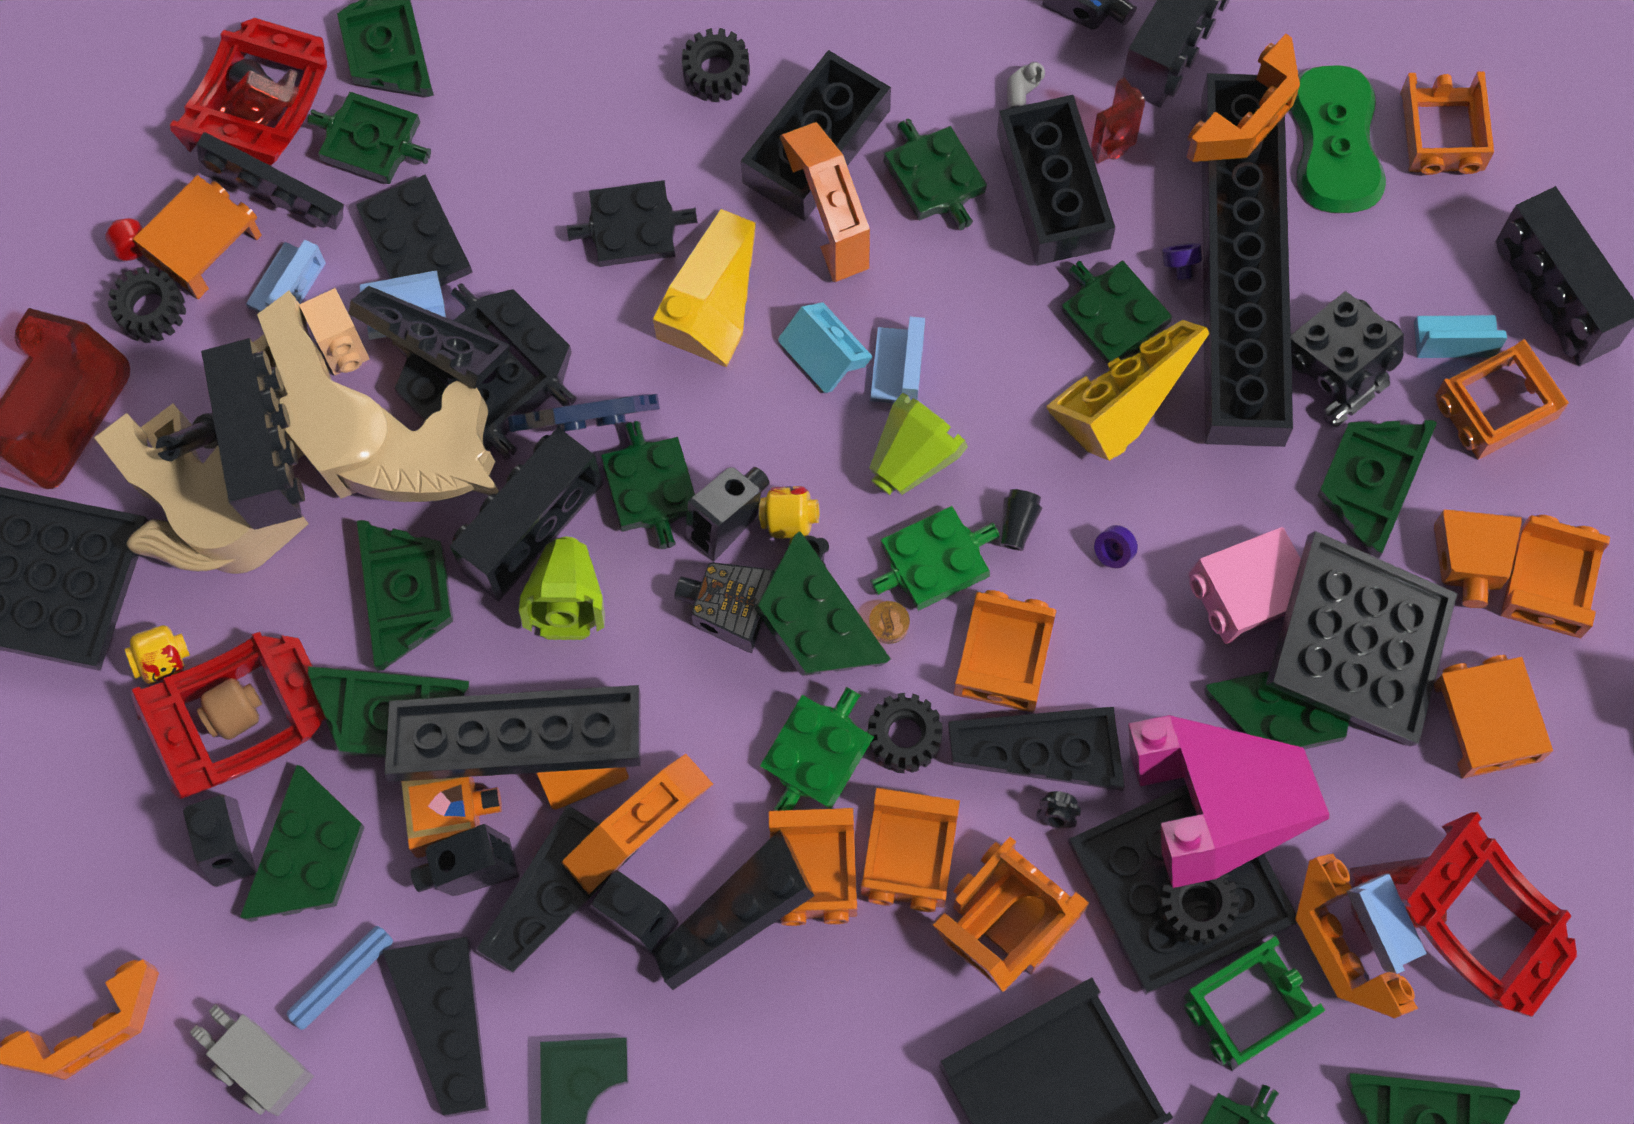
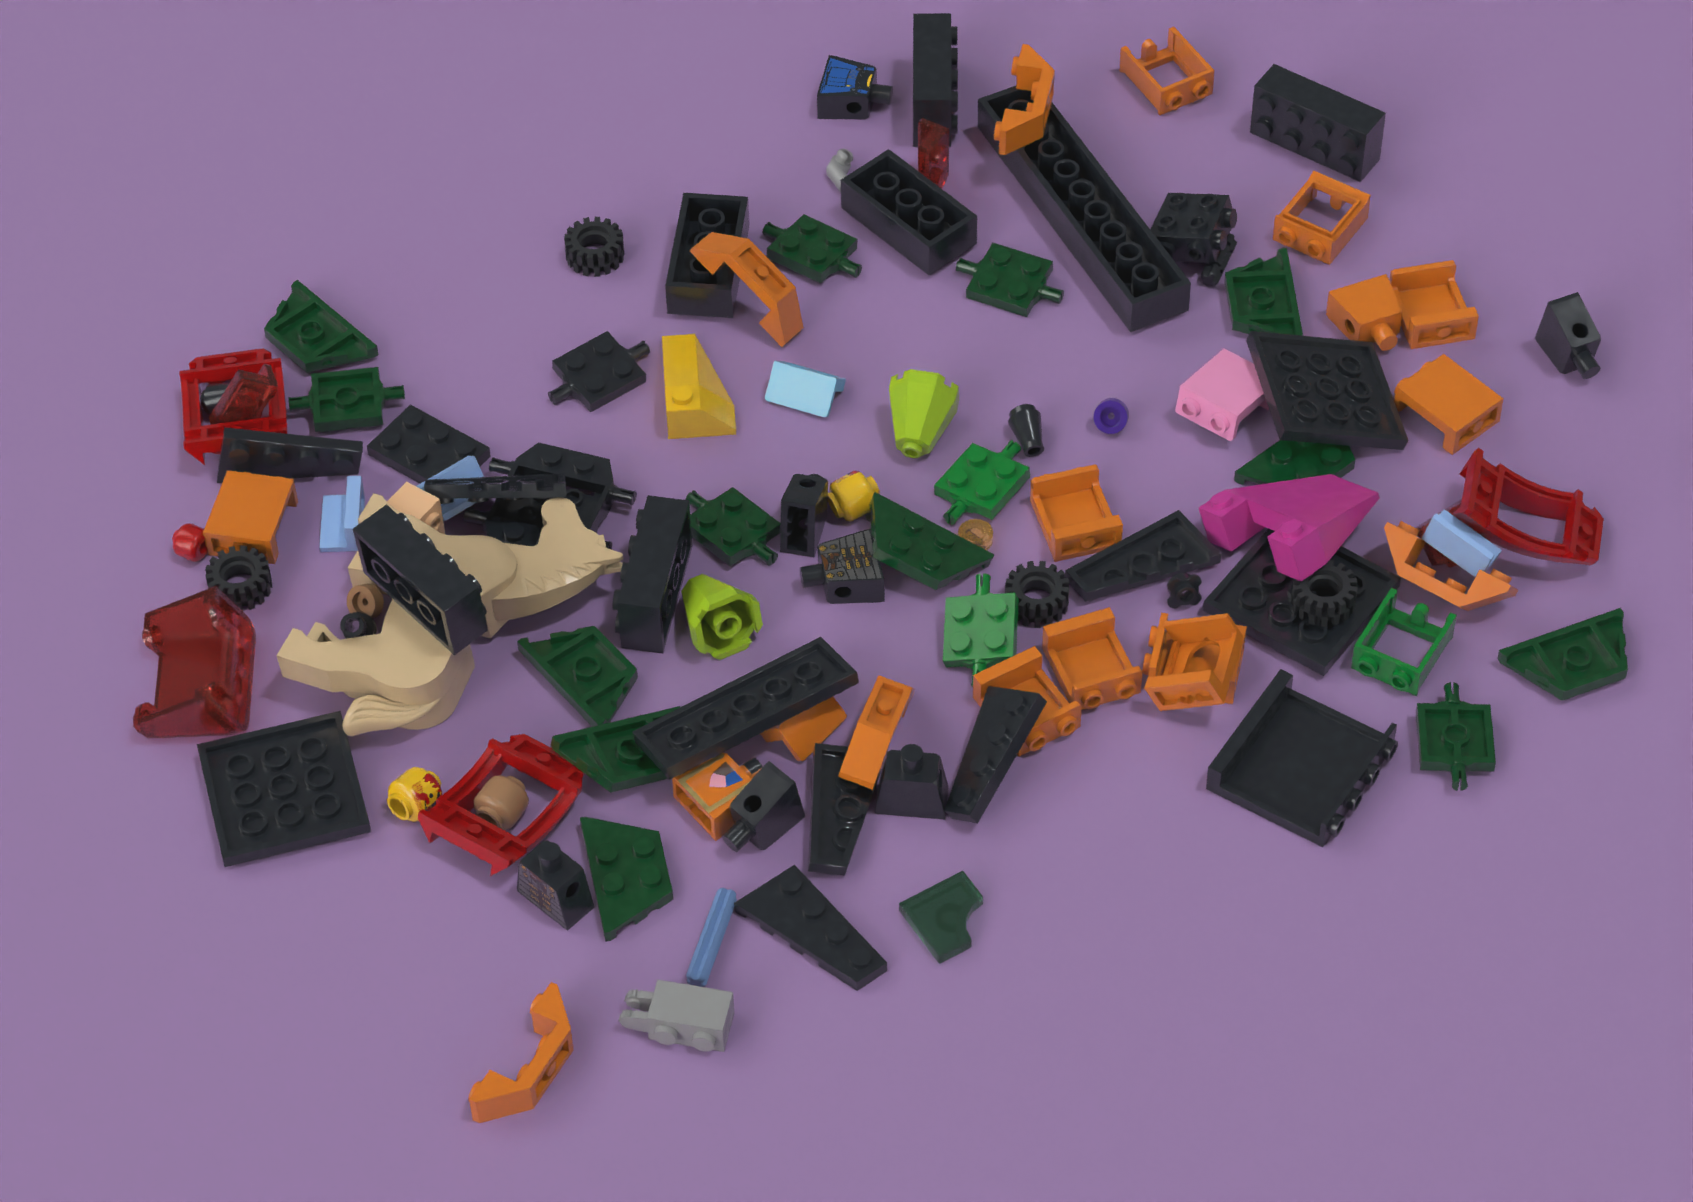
camera: 30 degrees left, 20 degrees down
(574, 416) = (665, 482): dark blue wing -> none
(898, 362) = (868, 372): light blue panel -> none
(1119, 404) = (1054, 321): yellow wedge -> none
(1182, 258) = (1035, 225): dark purple tile -> none
(1337, 158) = (1100, 123): green plate -> none
(1458, 336) = (1265, 194): medium azure panel -> none

